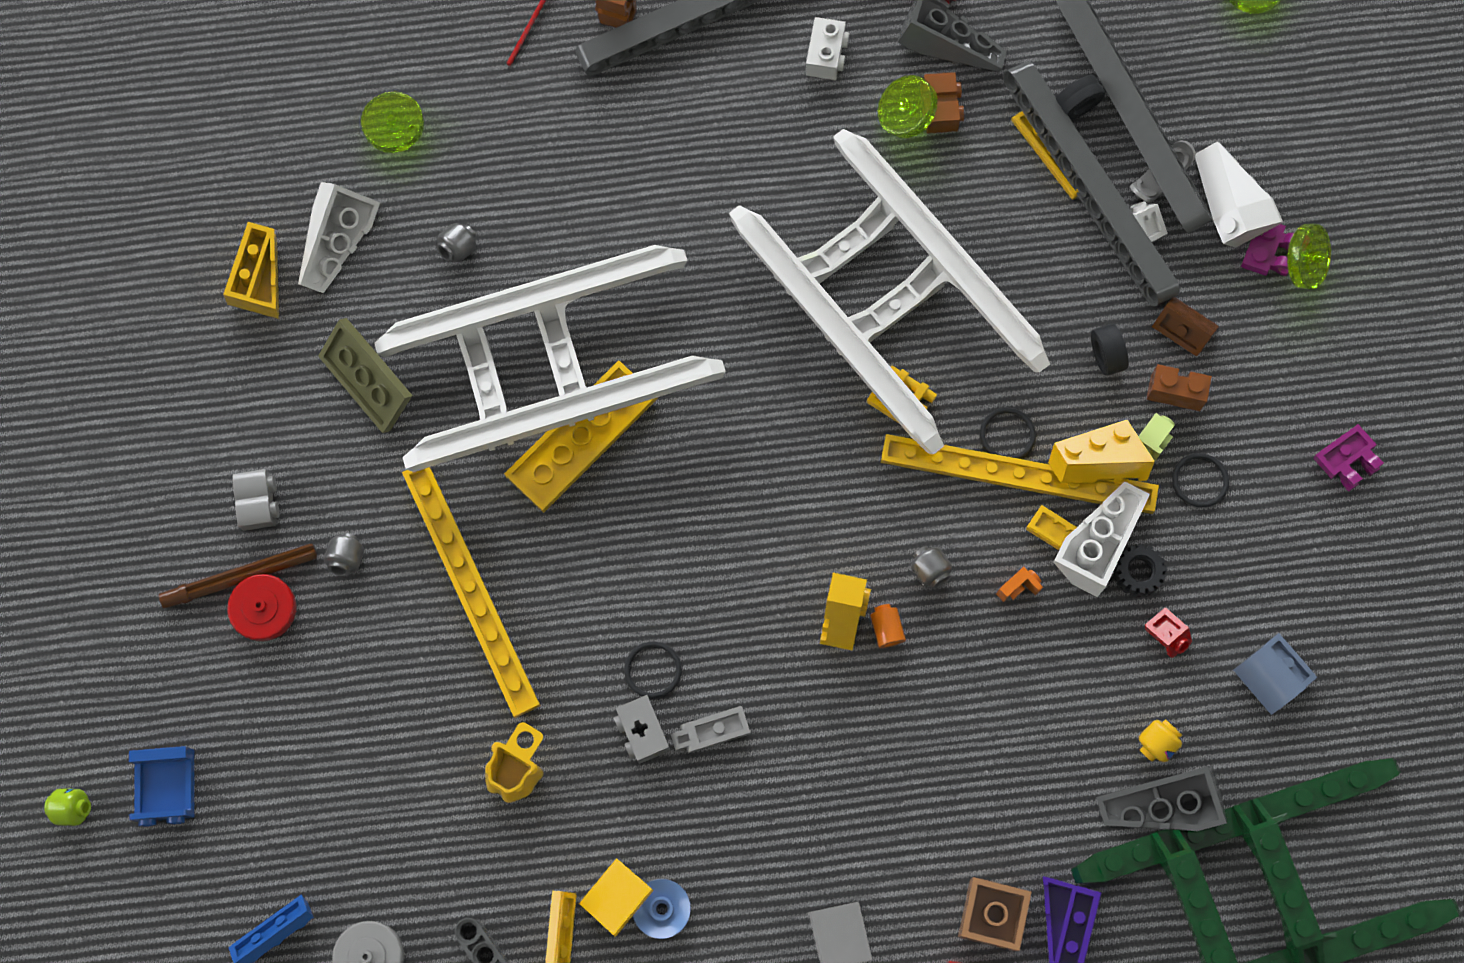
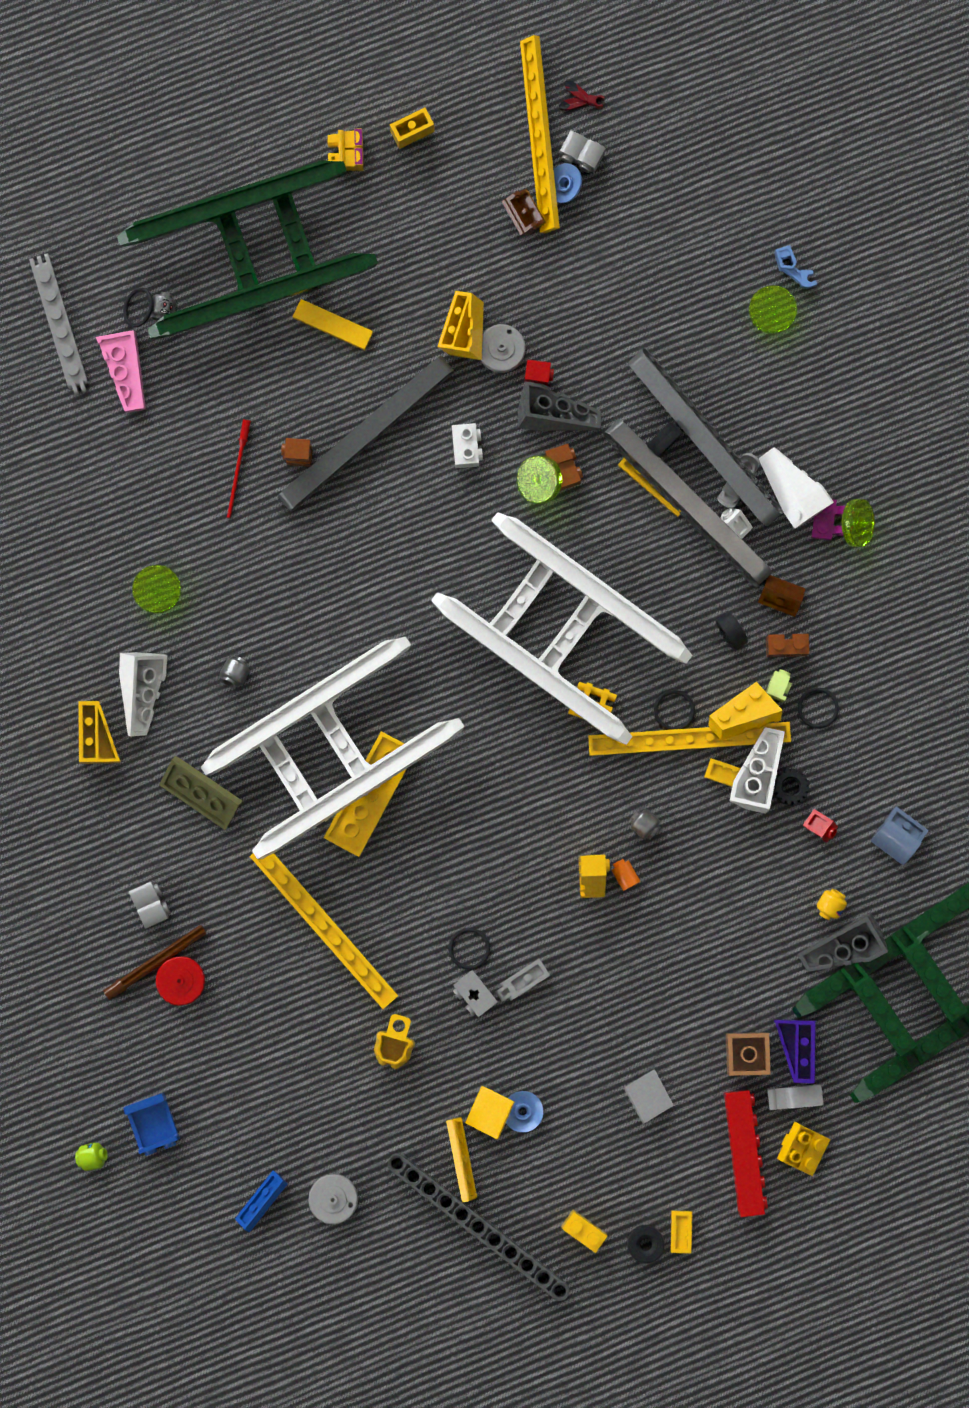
camera: 20 degrees left, 10 degrees up
(344, 554) = (226, 927): flat silver head -> none
(1014, 586) = (706, 821): orange bracket -> none
(1345, 451) = (913, 662): magenta plate -> none

